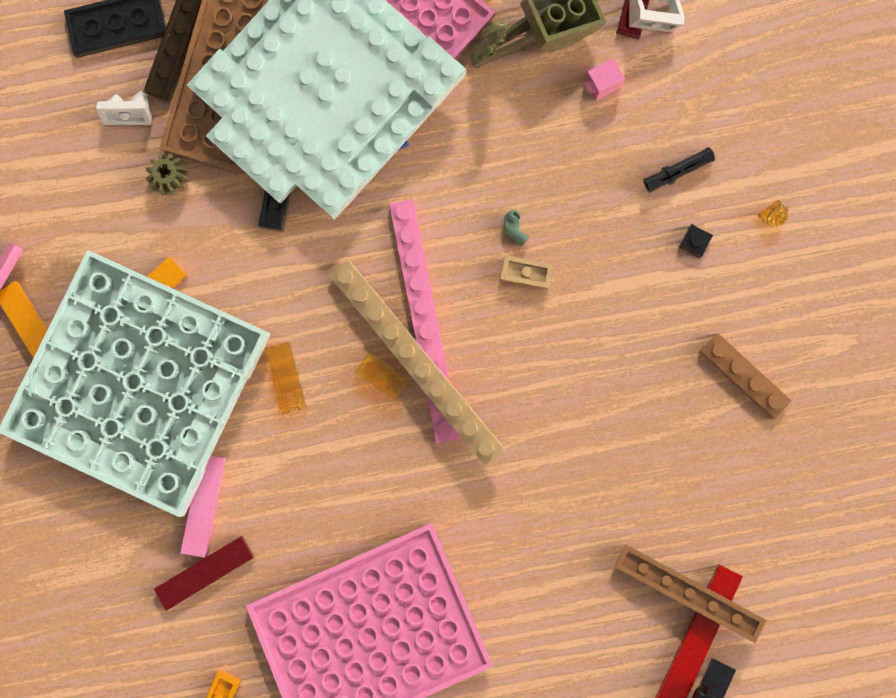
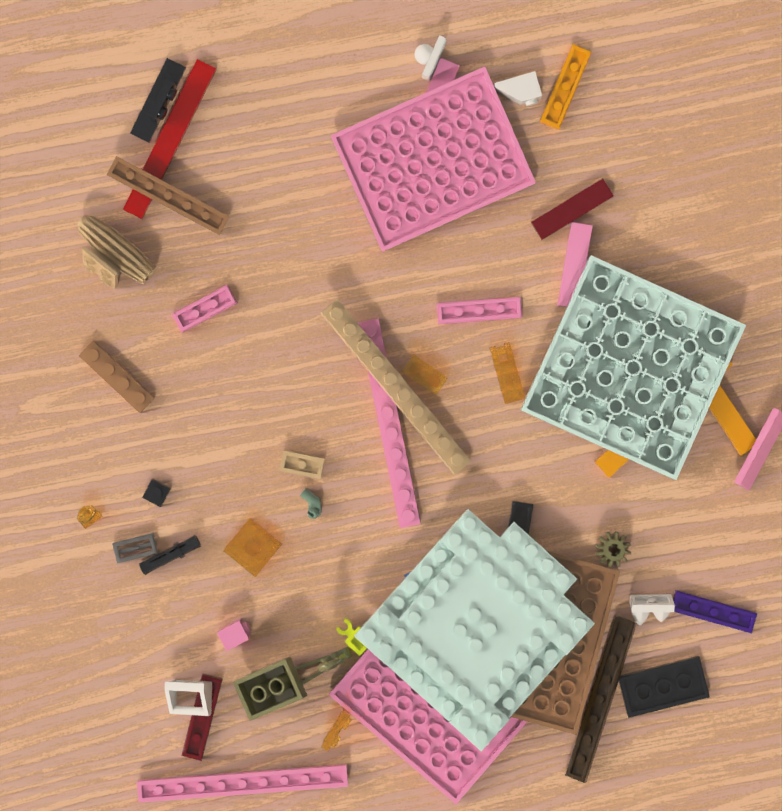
camera: 175 degrees right, 5 degrees up
(54, 105) = (714, 611): none -> dark purple tile
(317, 452) = (479, 310): none -> bright pink tile
(469, 80) = (352, 641): none -> neon yellow plate
(583, 178) = (252, 547): none -> clear yellow plate
(642, 456) = (204, 308): none -> bright pink tile
(700, 183) = (152, 543): none -> flat silver tile
(755, 522) = (112, 253): none -> tan plate

